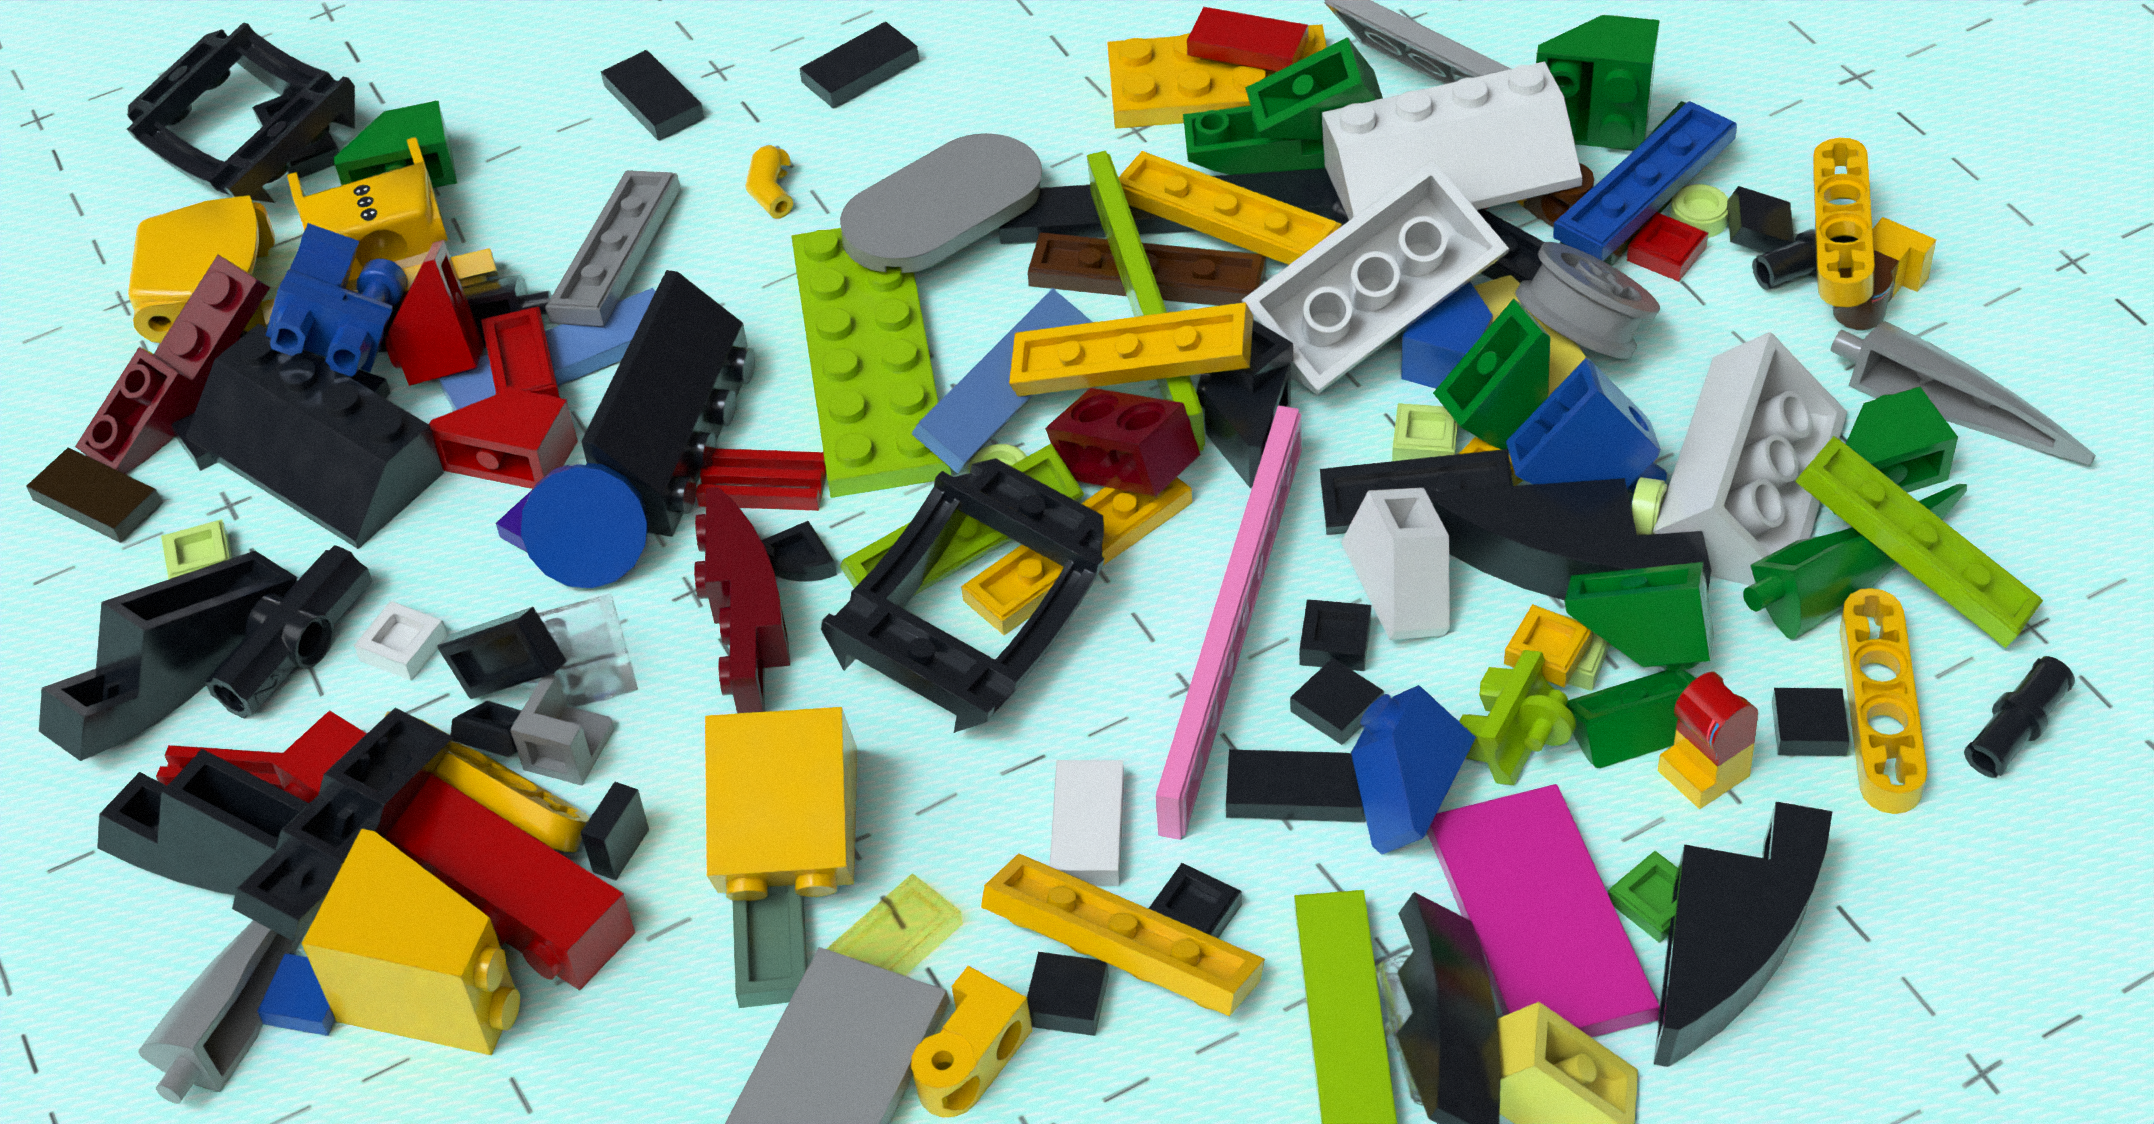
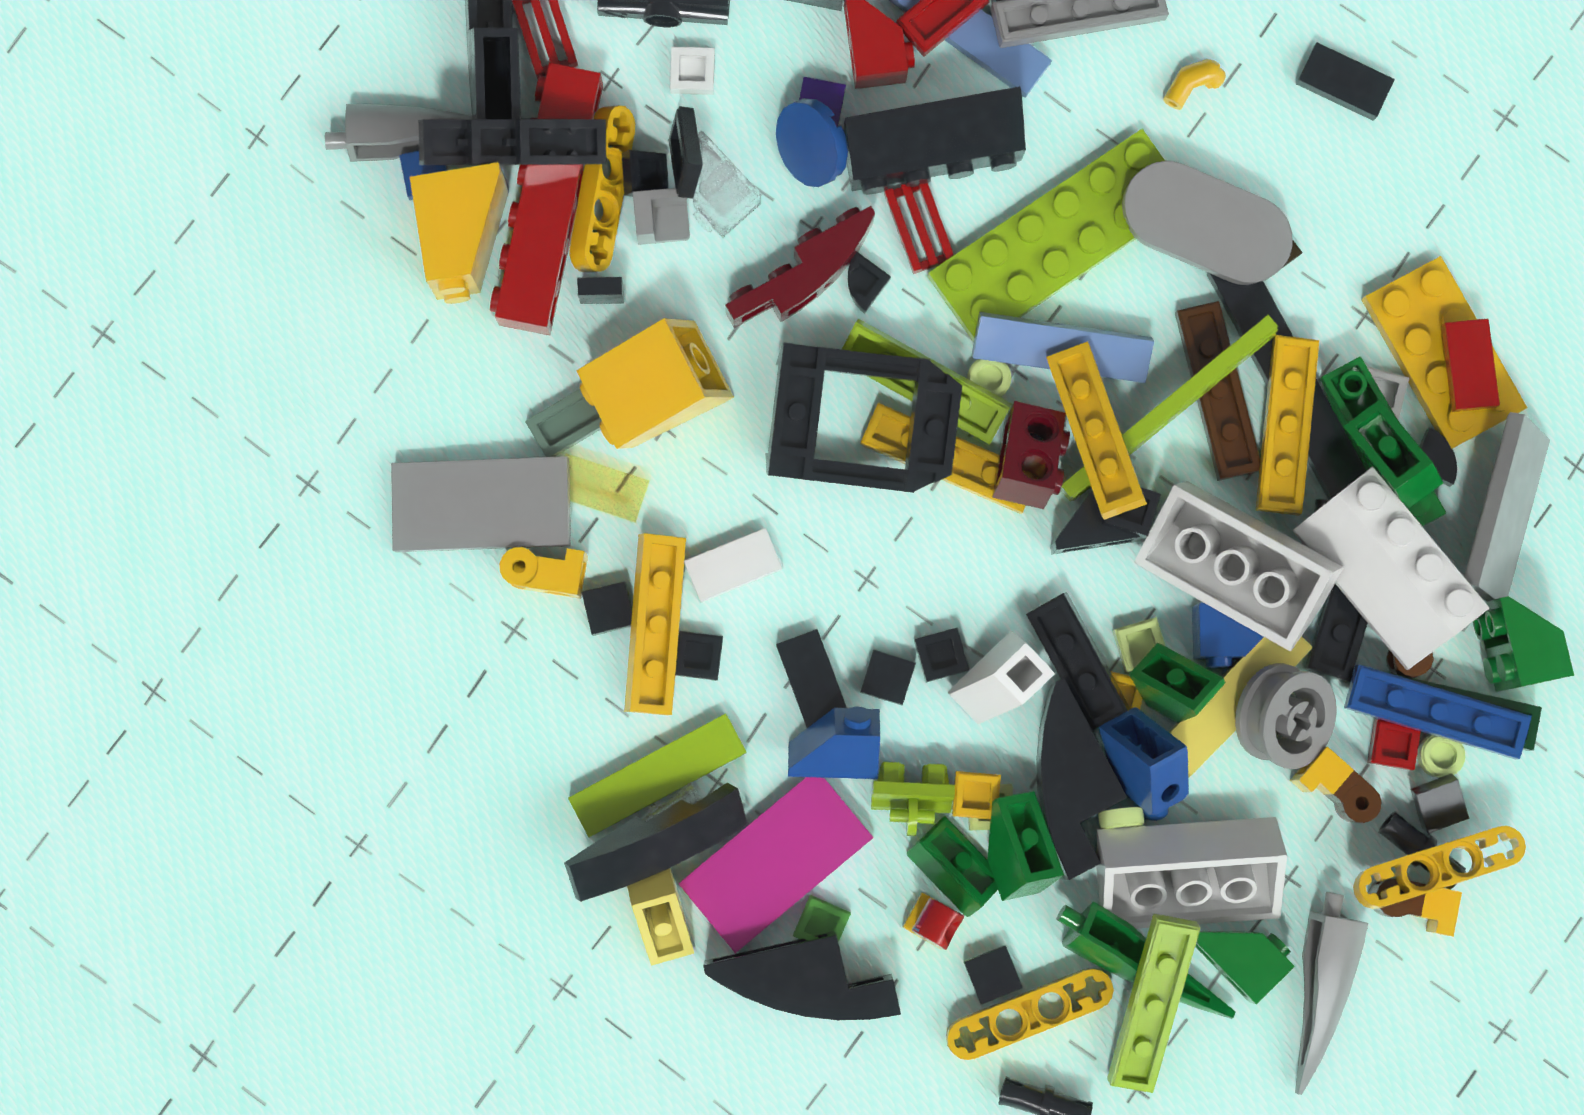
camera: 55 degrees right, 35 degrees up
(1228, 626) = (924, 586): bright pink tile -> none
(1700, 298) = (1351, 794): none -> leg

